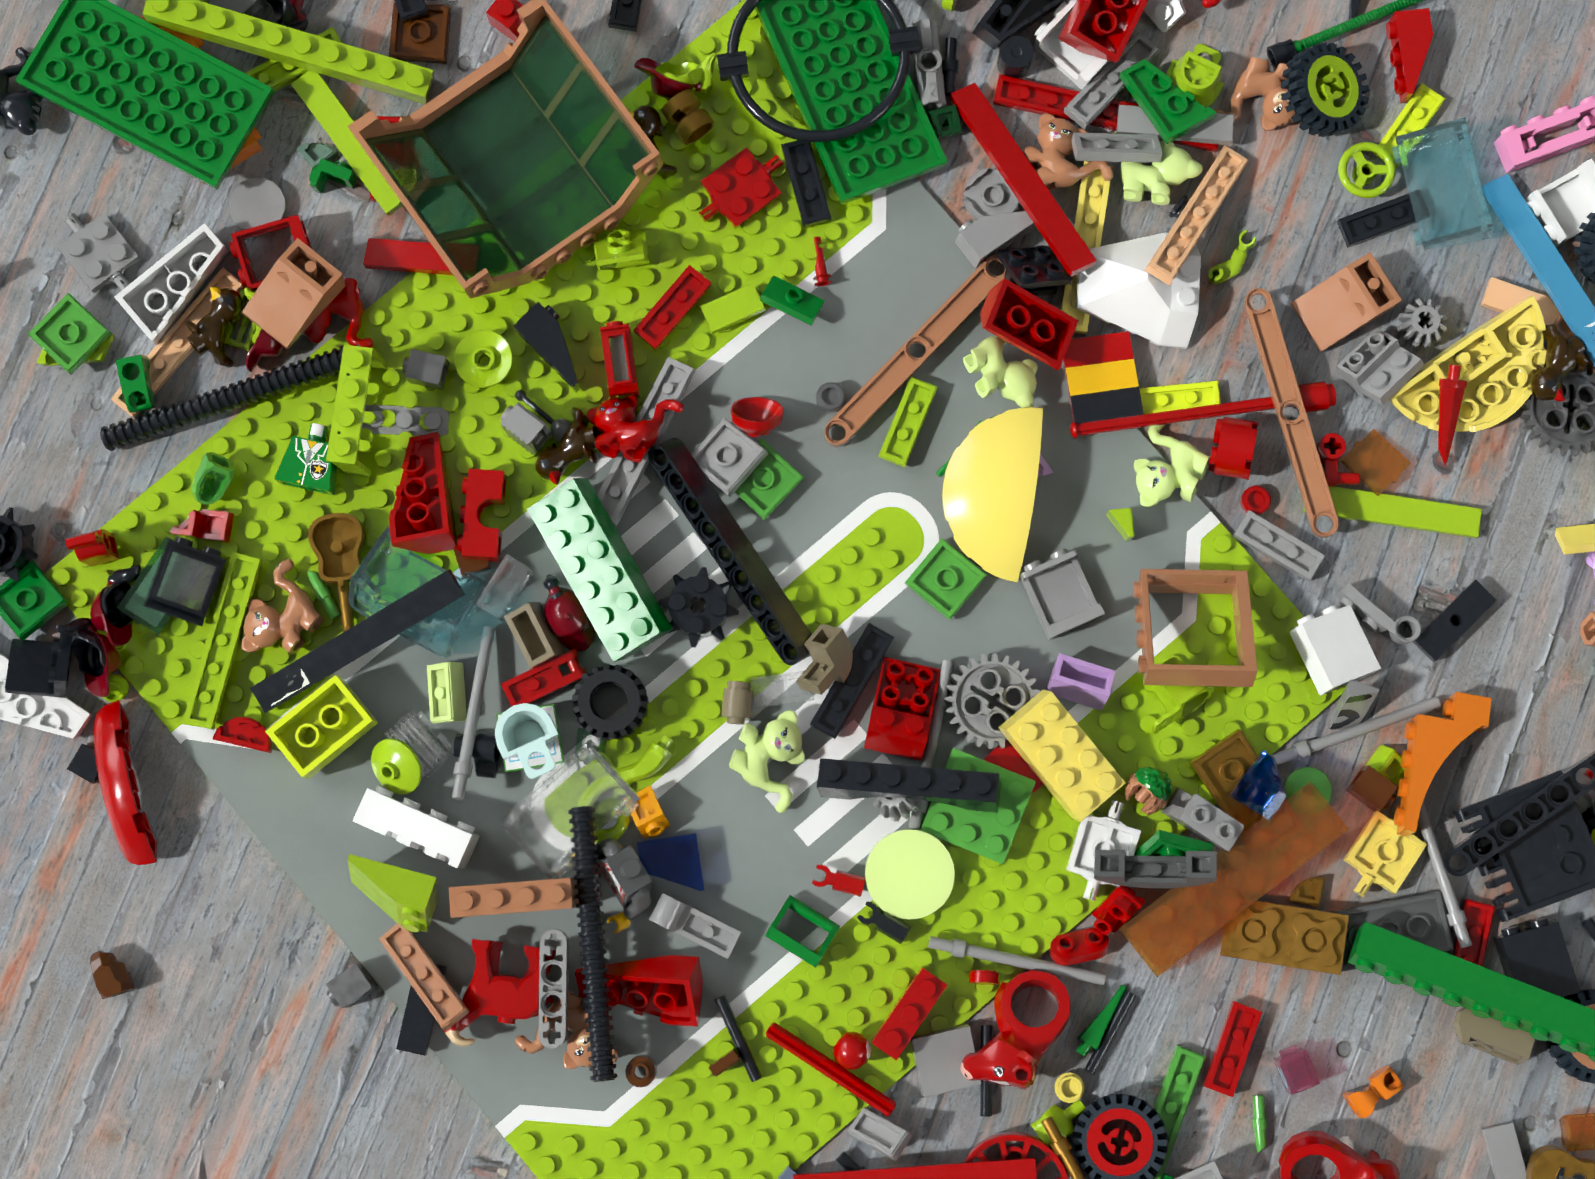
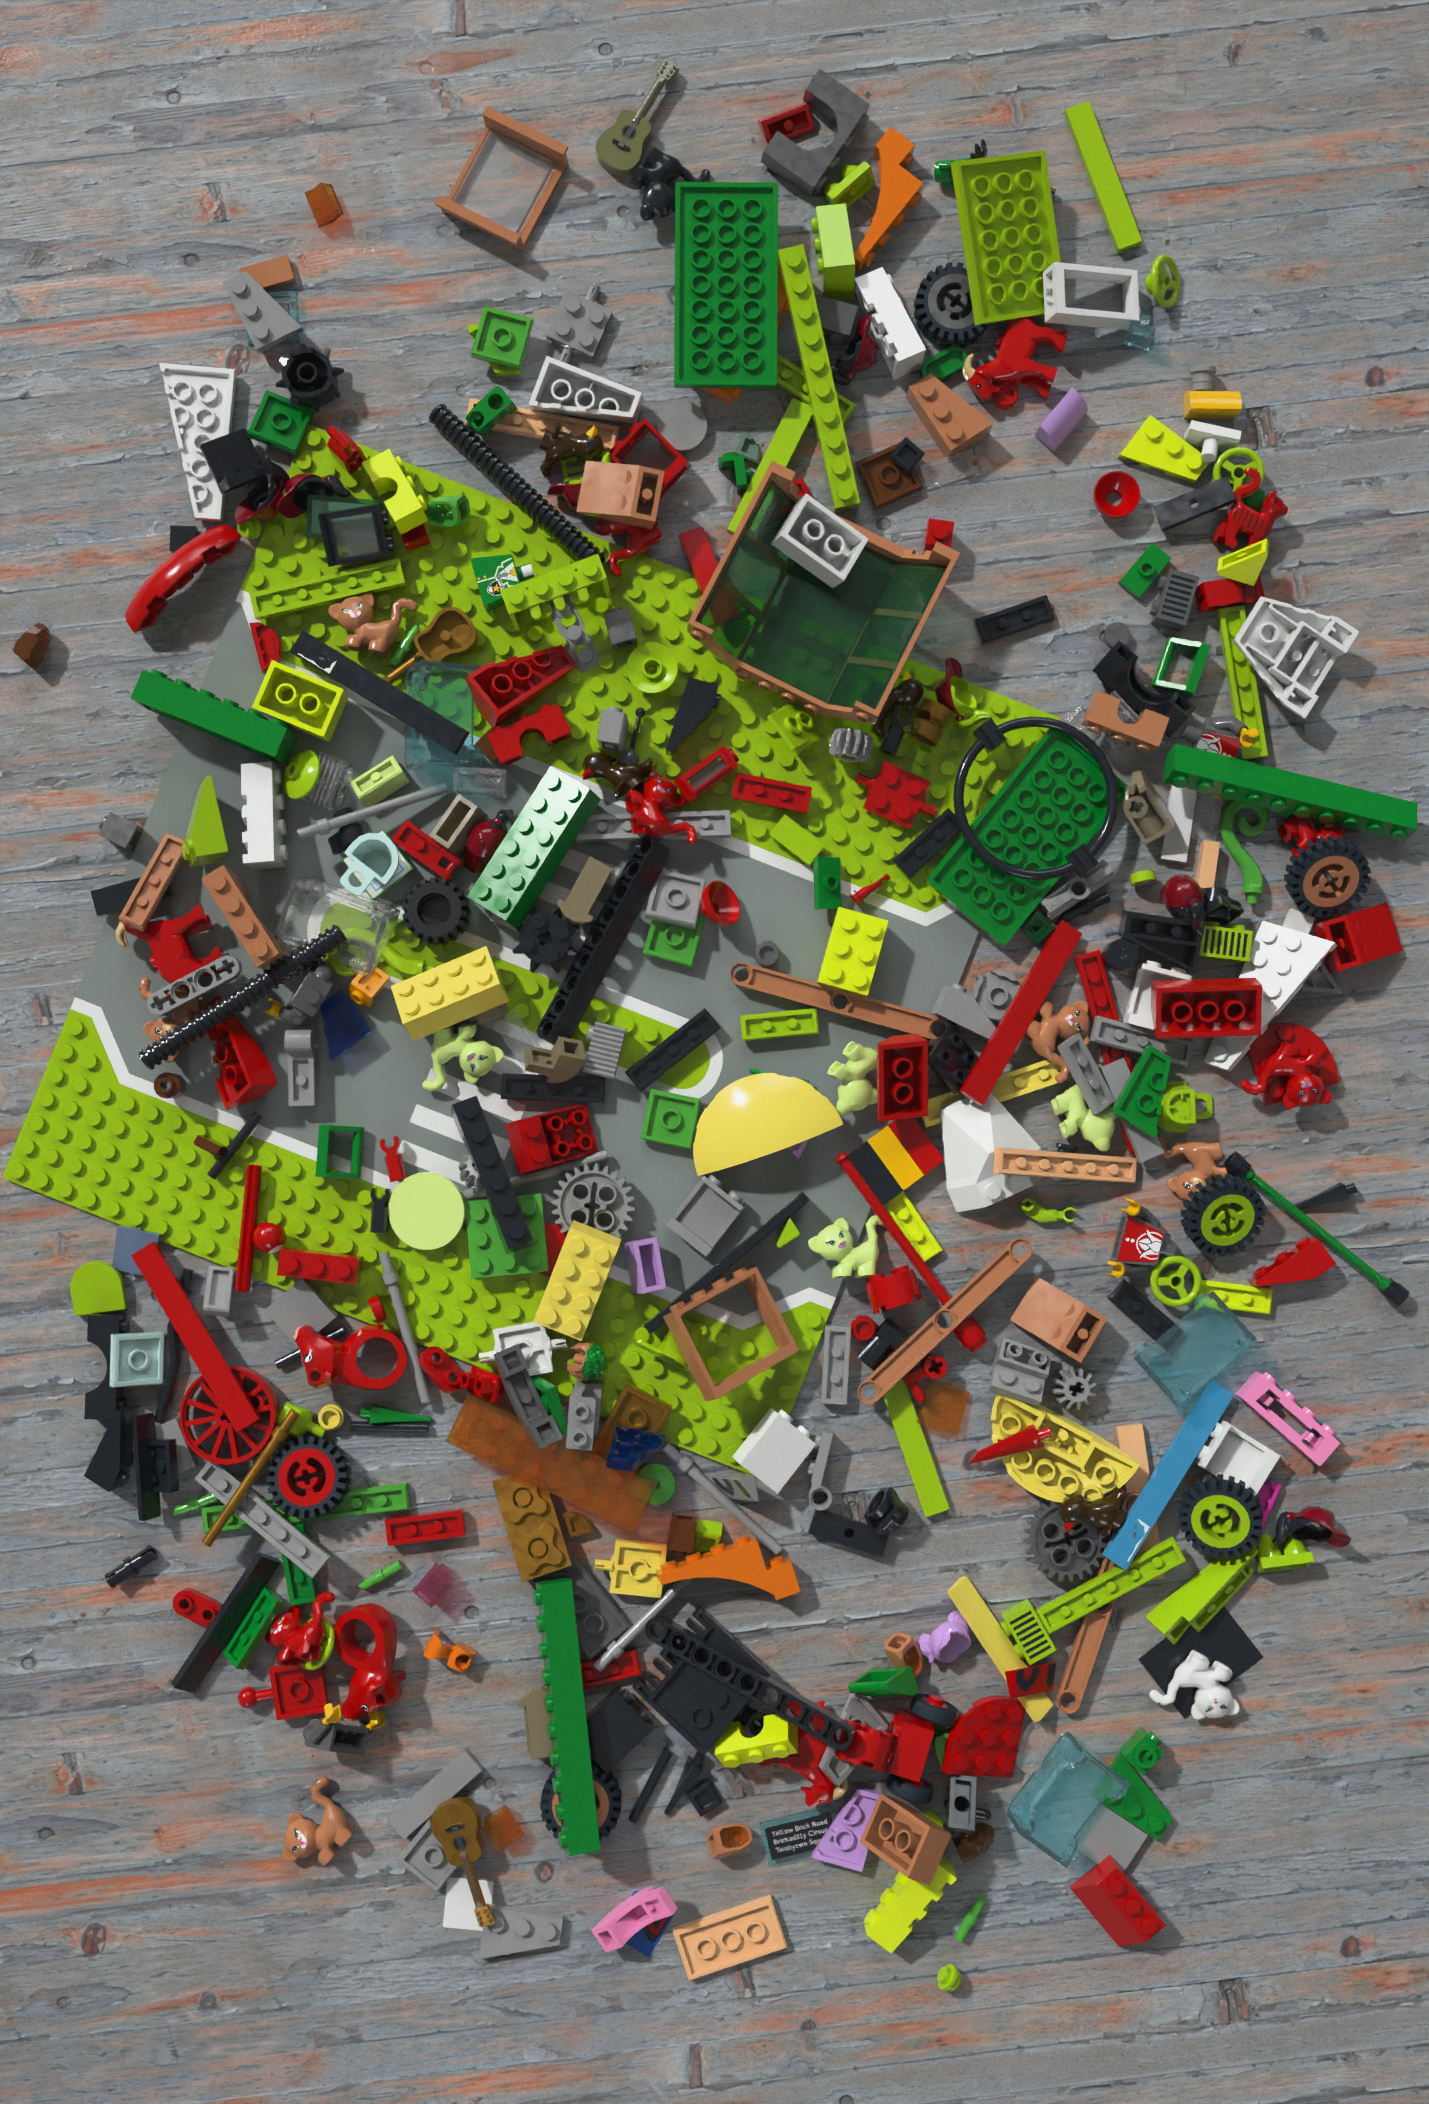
camera: 60 degrees right, 5 degrees up
(141, 518) = (387, 475): none -> neon yellow arch
(289, 822) = (212, 716): none -> green brick
(450, 126) = (819, 541): none -> white brick
(668, 204) = (851, 745): none -> light grey gear
(672, 541) = (585, 892): none -> dark tan piece
(680, 158) = (894, 734): none -> black bar
(702, 730) = (449, 993): none -> light yellow brick
(841, 607) = (604, 1049): none -> light grey brick
(874, 310) = (852, 951): none -> neon yellow brick
(877, 541) = (672, 1050): none -> black tile
(1119, 594) = (731, 1258): none -> black tile
(1279, 481) = (886, 1339): none -> black piece
(1308, 186) = (1138, 1242): none -> torso
(1450, 569) = (887, 1510): none -> black piece

